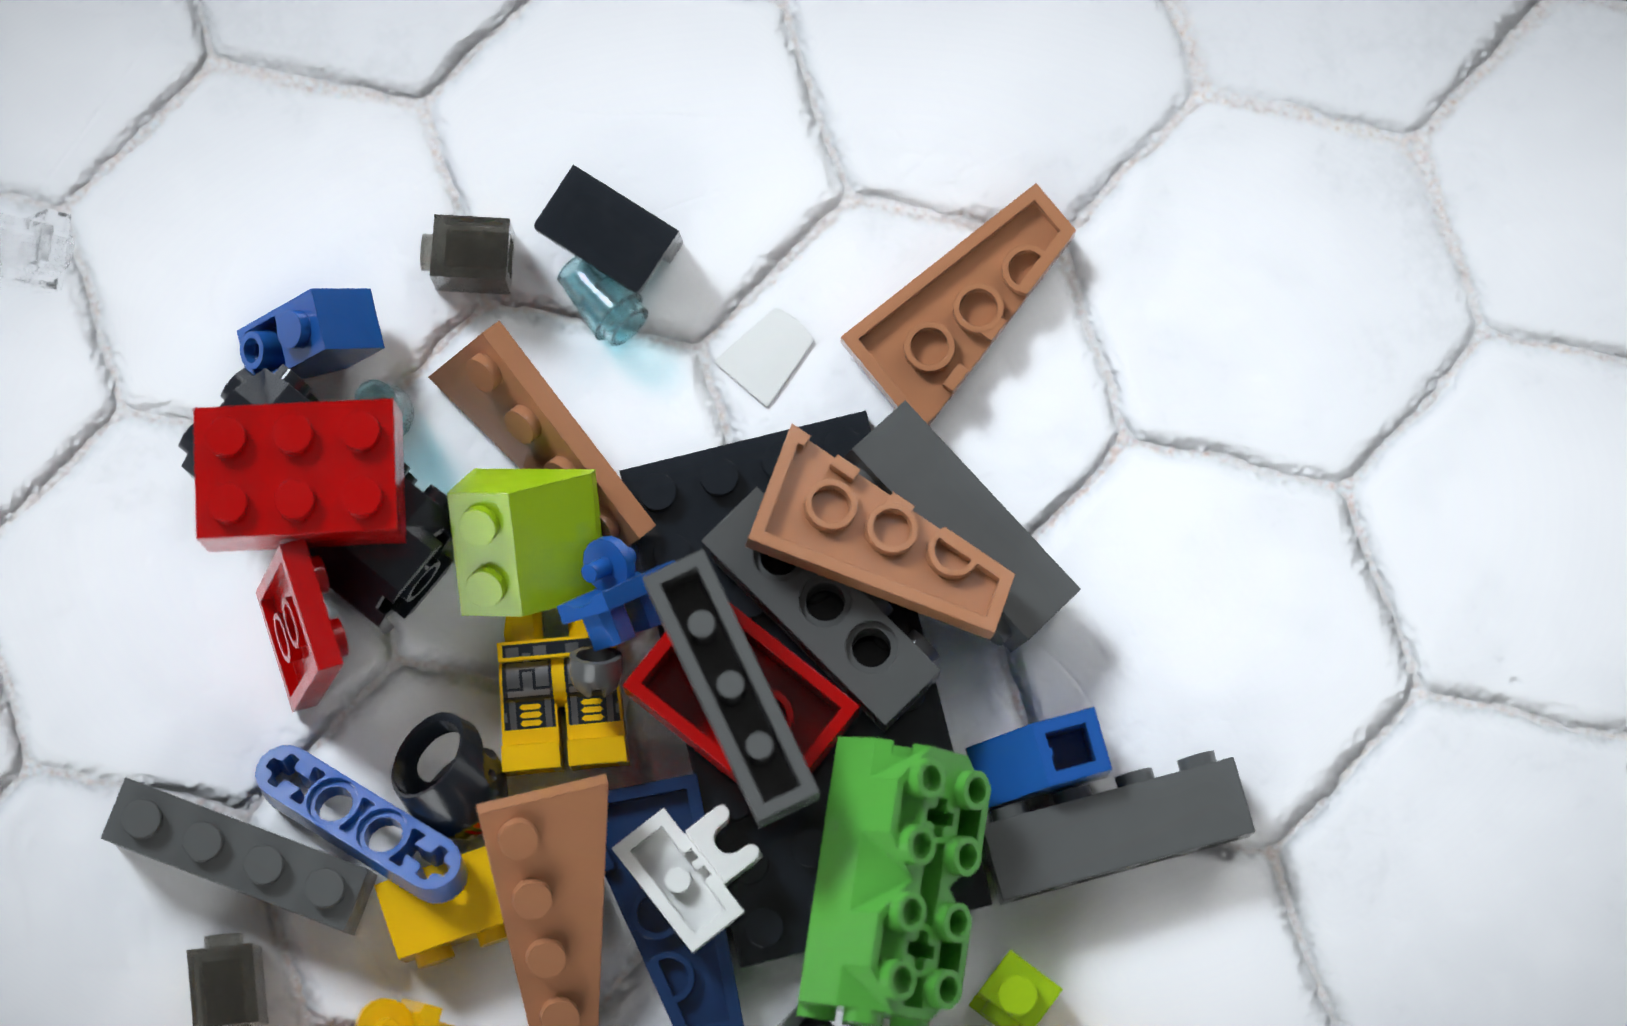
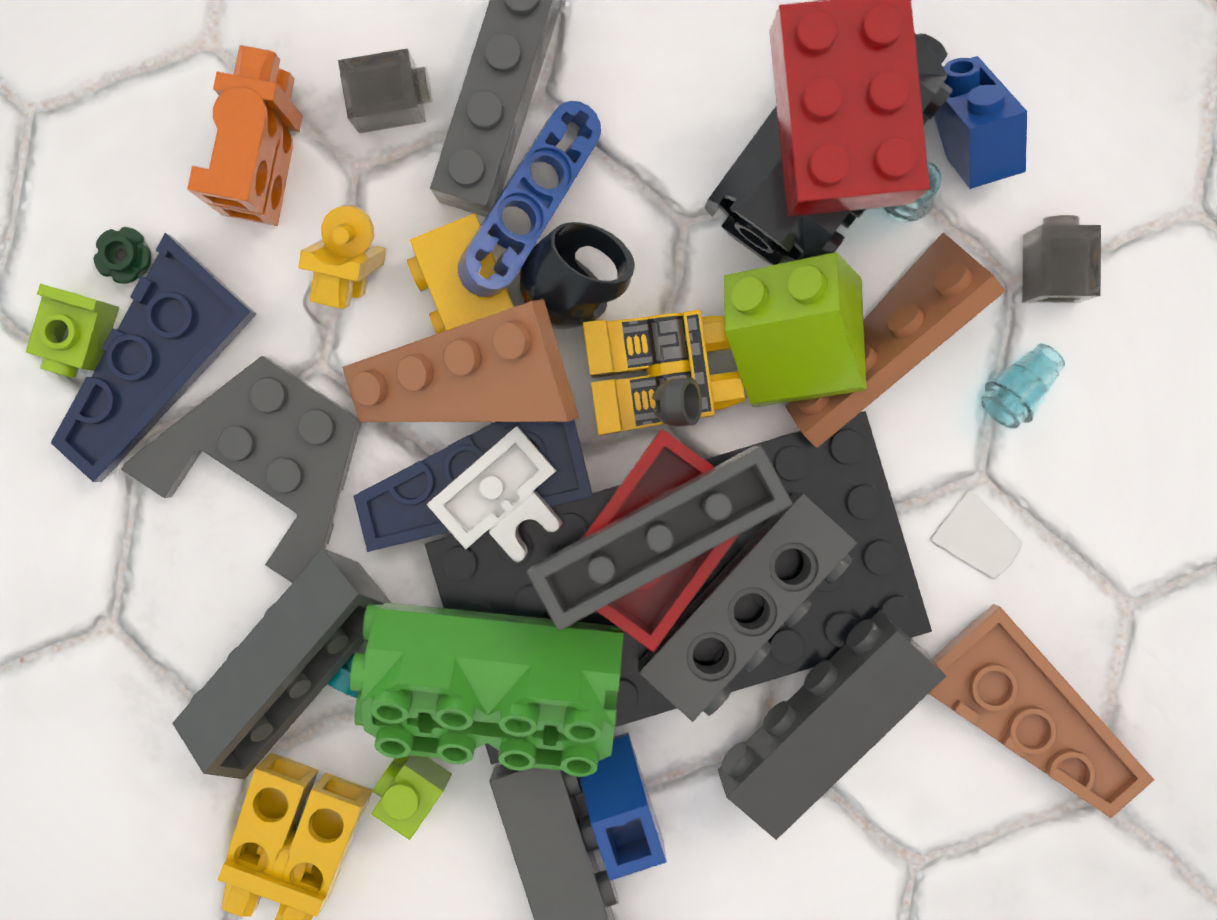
camera: 85 degrees right, 10 degrees up
(299, 626) = (731, 118): red plate -> none
(607, 230) = (1092, 387): black panel -> none
(611, 569) = (748, 420): blue hips -> none
(854, 533) = (816, 639): nougat wing -> none

